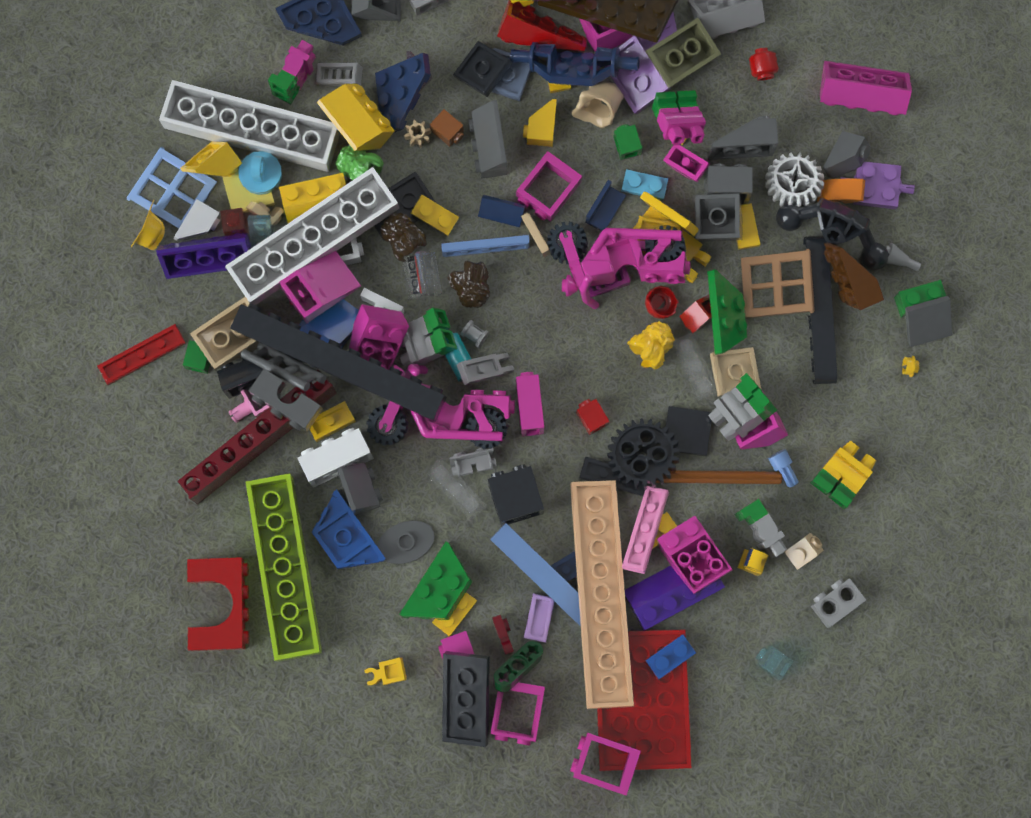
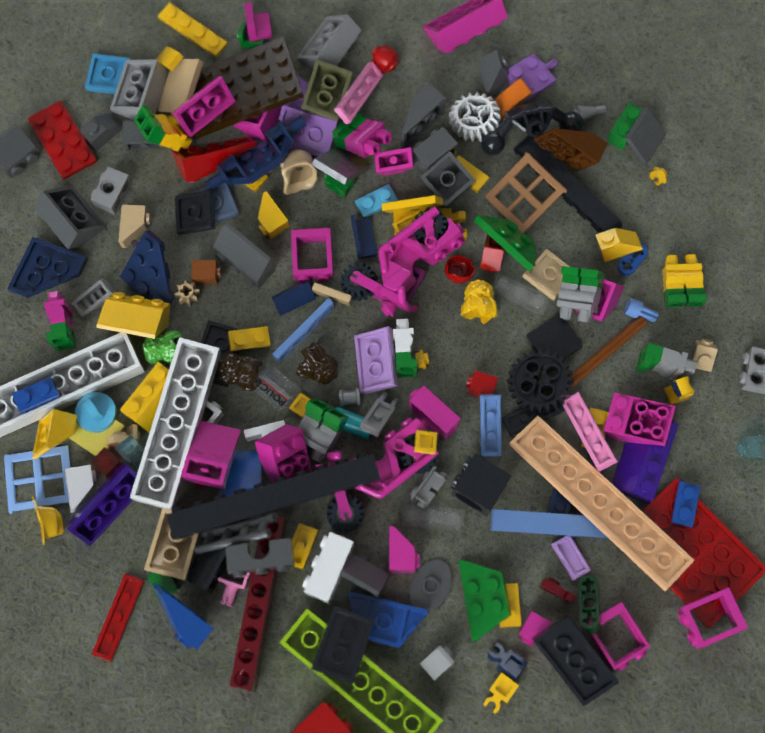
camera: 40 degrees left, 5 degrees down
(188, 405) = (188, 625): none -> blue slope
(222, 118) = (35, 395): none -> blue plate
(292, 526) = (343, 644): none -> black plate
(356, 605) = (438, 662): none -> light grey slope
(401, 495) = (401, 553): none -> dark pink slope
(413, 657) = (509, 663): none -> dark blue plate
(423, 36) = (133, 223): none -> tan slope
(428, 303) = (299, 405): none -> yellow tile
(497, 422) = (425, 442): none -> yellow tile
(522, 321) = (375, 360): none -> lavender tile
(552, 331) = (403, 343): none -> hips
(562, 352) = (422, 359): none -> yellow plate
(569, 454) = (490, 425): none -> medium blue tile
(638, 128) = (340, 164): none -> flat silver tile
(711, 76) = (358, 92): none -> bright pink tile
(816, 394) = (617, 243): none -> yellow slope
(818, 413) = (635, 262): none -> blue beam

